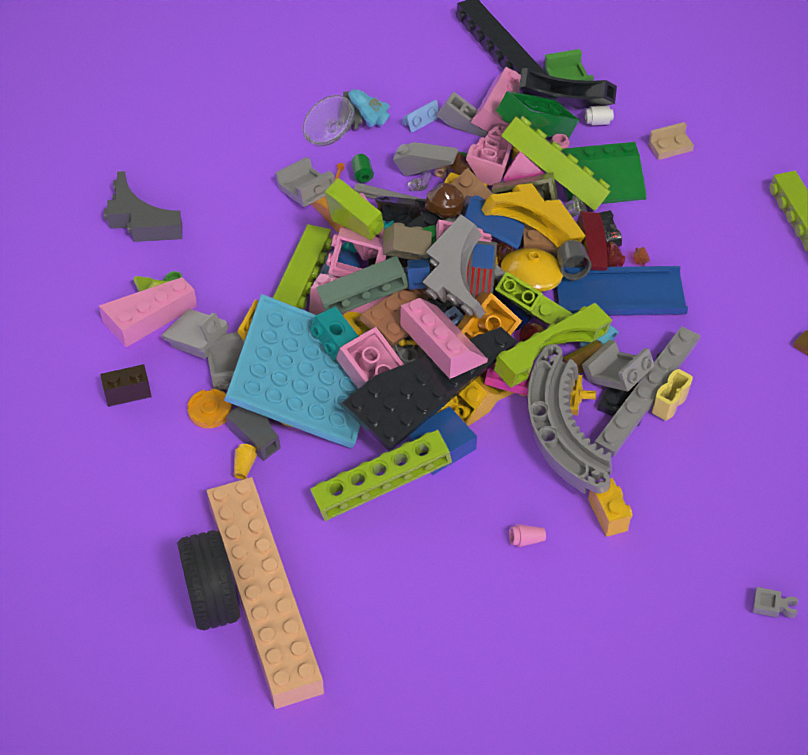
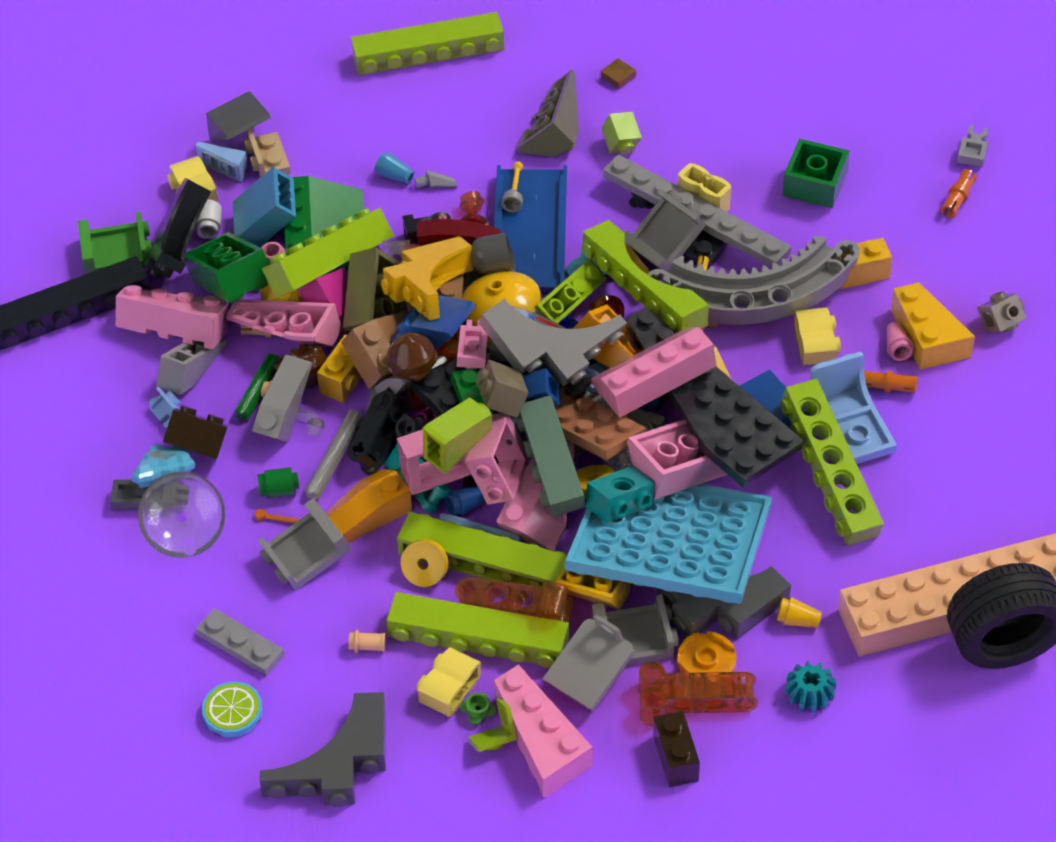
camera: 85 degrees left, 0 degrees up
(175, 383) = (692, 692): none -> clear orange piece
(175, 467) = (810, 686): none -> teal gear
(183, 164) = (232, 709): none -> tile
(193, 263) = (448, 681): none -> light yellow brick
(231, 218) = (366, 641): none -> light nougat pin
(235, 164) = (240, 642): none -> light grey plate
(236, 273) = (476, 629): none -> lime brick
(257, 282) = (548, 601): none -> clear orange piece
(290, 242) = (436, 559): none -> yellow piece
(395, 119) = (195, 432): none -> dark brown brick
(440, 496) = (853, 408): none -> light blue bracket
(481, 527) = (890, 381): none -> orange pin
(525, 475) = (816, 335): none -> light yellow brick
(541, 553) = (931, 327): none -> yellow wedge
(563, 611) = (1002, 312): none -> brick
(603, 134) = (264, 207): none -> dark azure brick
(632, 106) = (195, 171): none -> light yellow brick
(643, 274) = (515, 197): none -> light grey hinge
(656, 118) = (224, 160): none -> light blue slope
(662, 235) = (435, 181): none -> light grey bar
(668, 208) = (393, 168): none -> dark azure cone
(693, 114) = (235, 117): none -> dark grey slope
(708, 473) = (815, 173): none -> green brick
(711, 588) = (958, 193): none -> orange pin
(729, 340) = (621, 132): none -> lime brick
(731, 301) = (555, 123): none -> wedge

